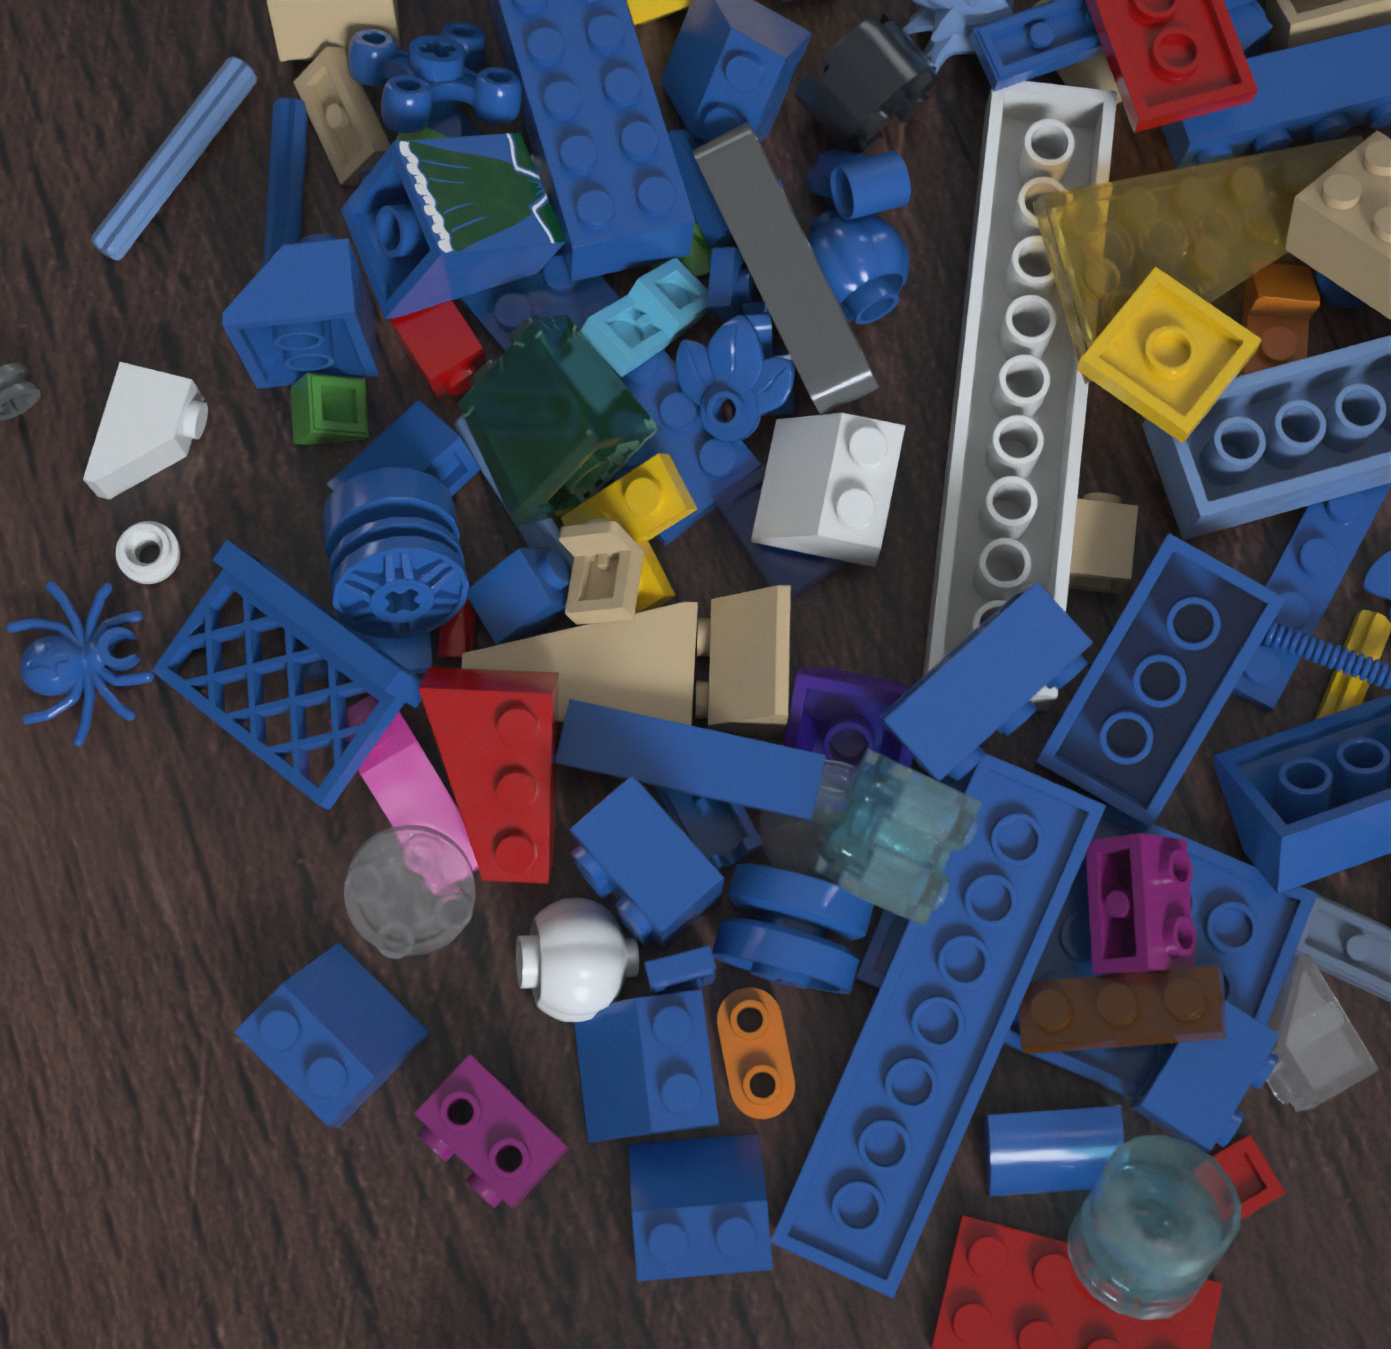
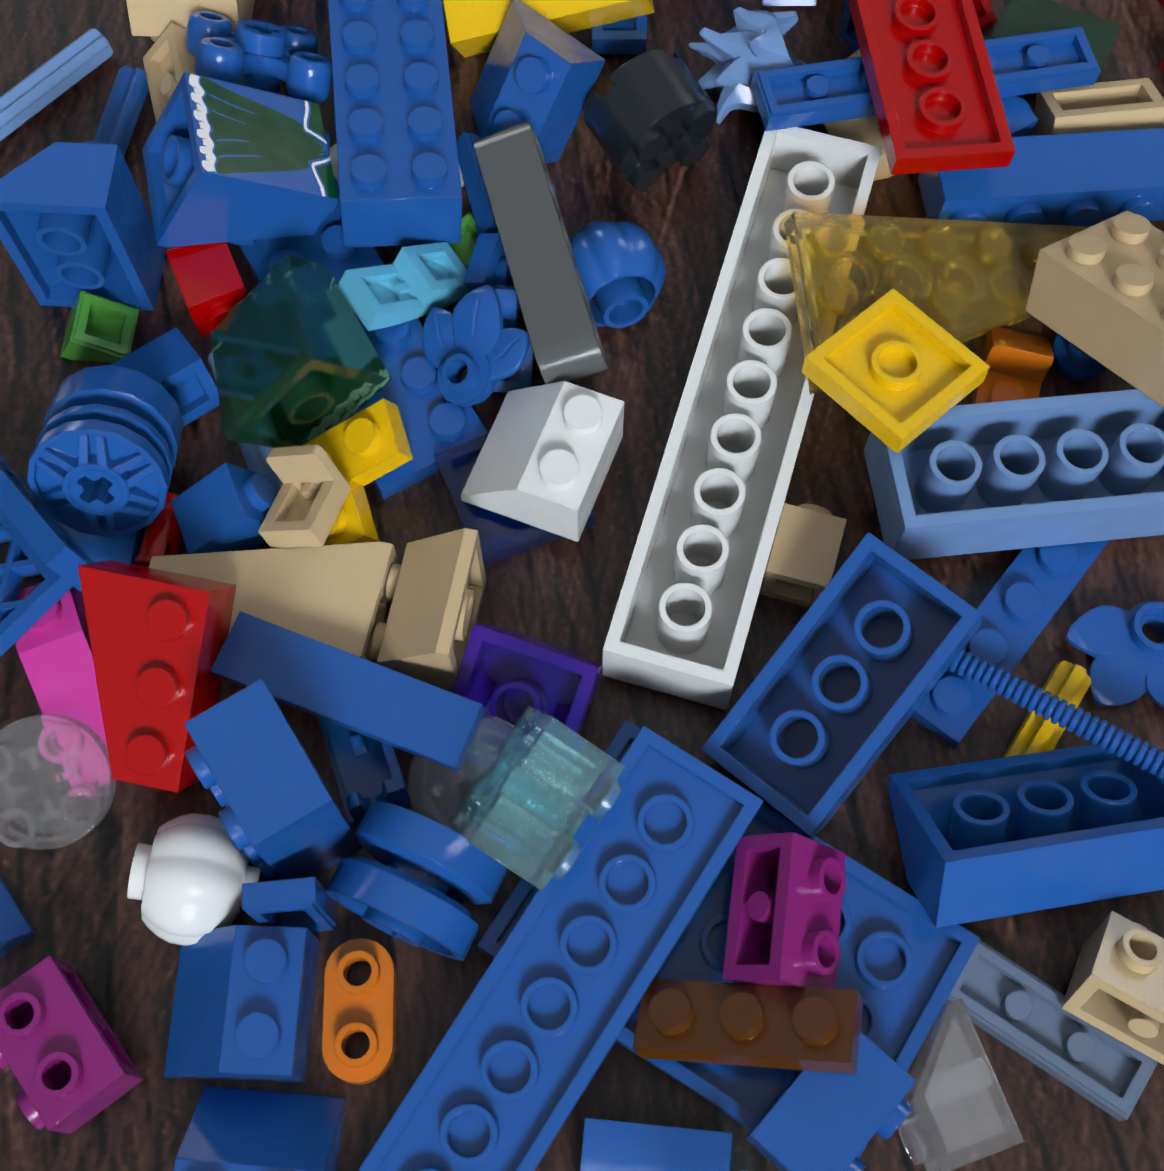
camera: 10 degrees right, 10 degrees down
(860, 182) = (630, 193): blue piece -> none
(987, 683) = (654, 647): blue brick -> none

